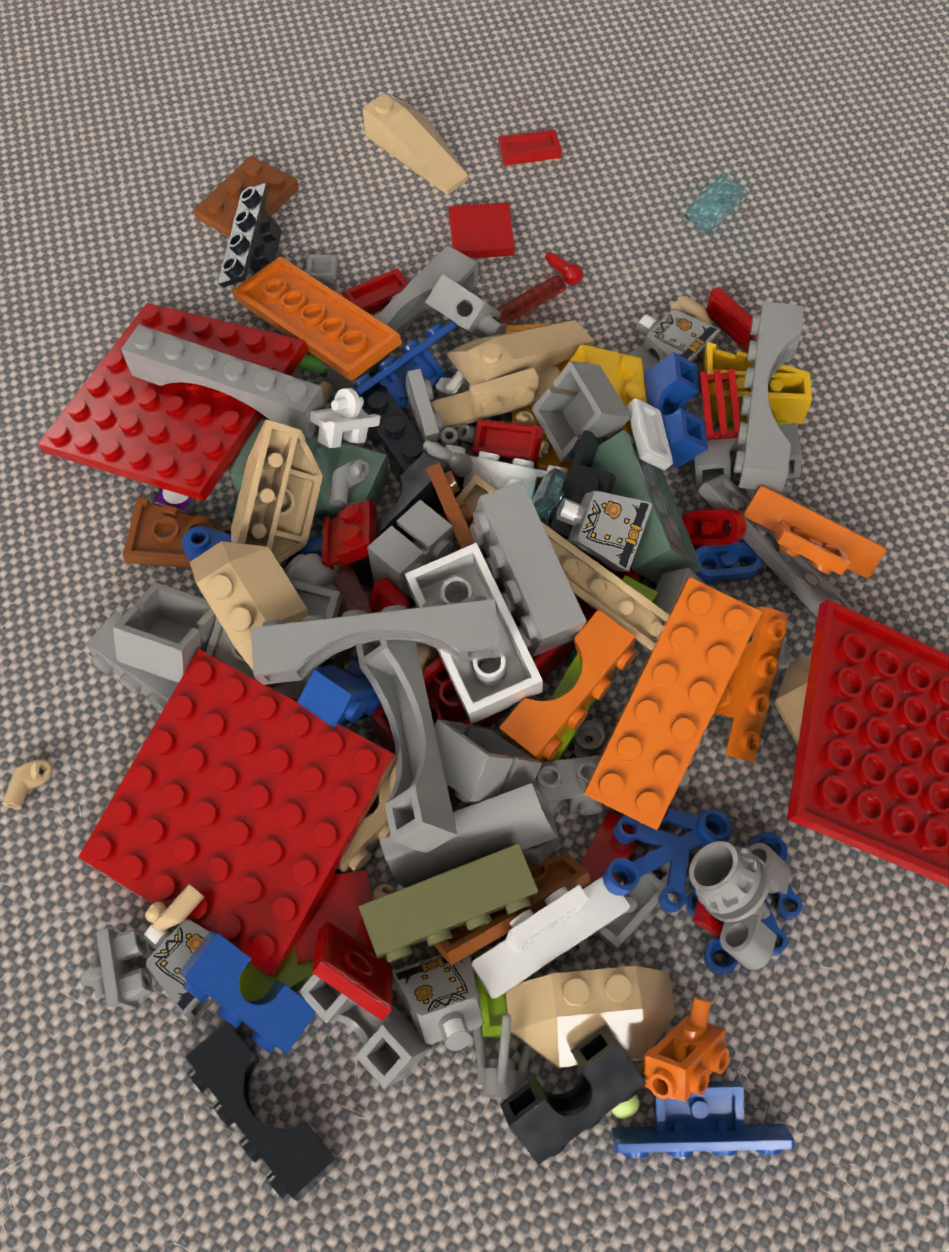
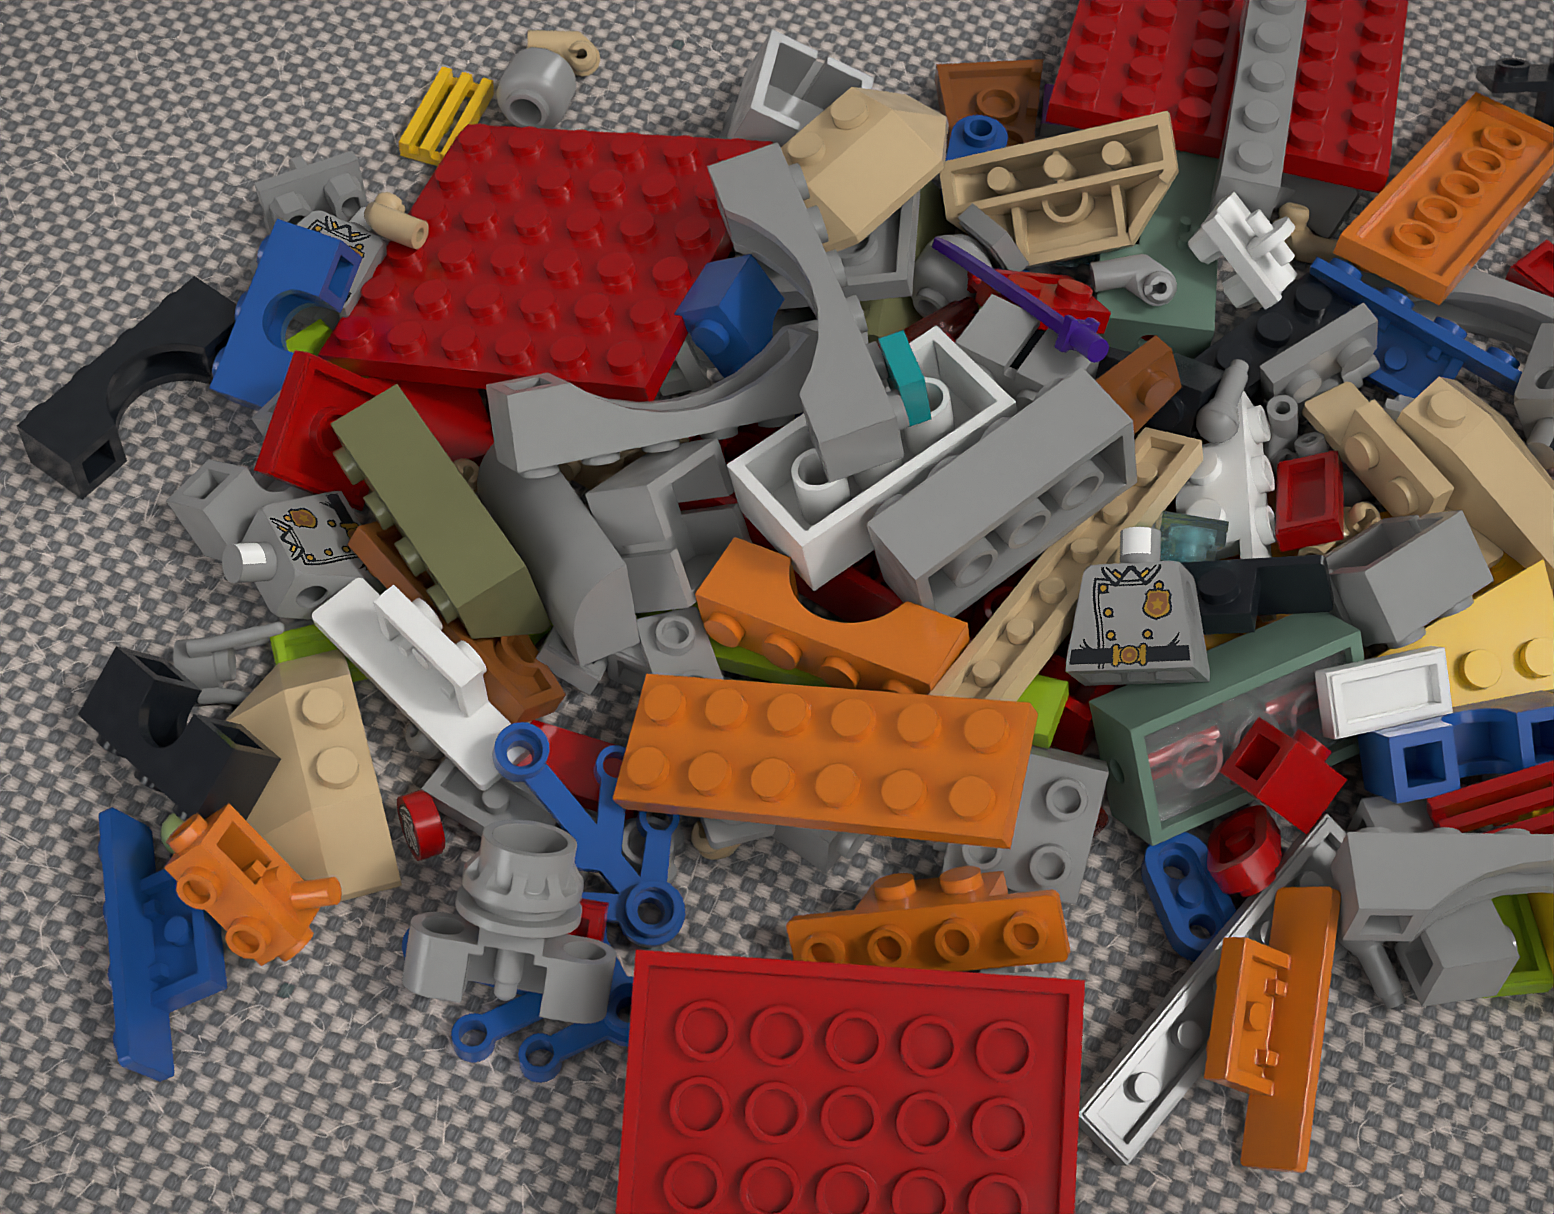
camera: 75 degrees right, 5 degrees down
(38, 854) = (425, 114): none -> yellow tile
(66, 803) = (536, 88): none -> light grey head
(298, 546) = (994, 238): none -> light grey tile
(417, 508) = (1072, 332): none -> dark purple sword
(453, 590) = (905, 376): none -> teal tile
(639, 952) = (421, 824): none -> red tile
(684, 493) = (1284, 773): none -> red brick

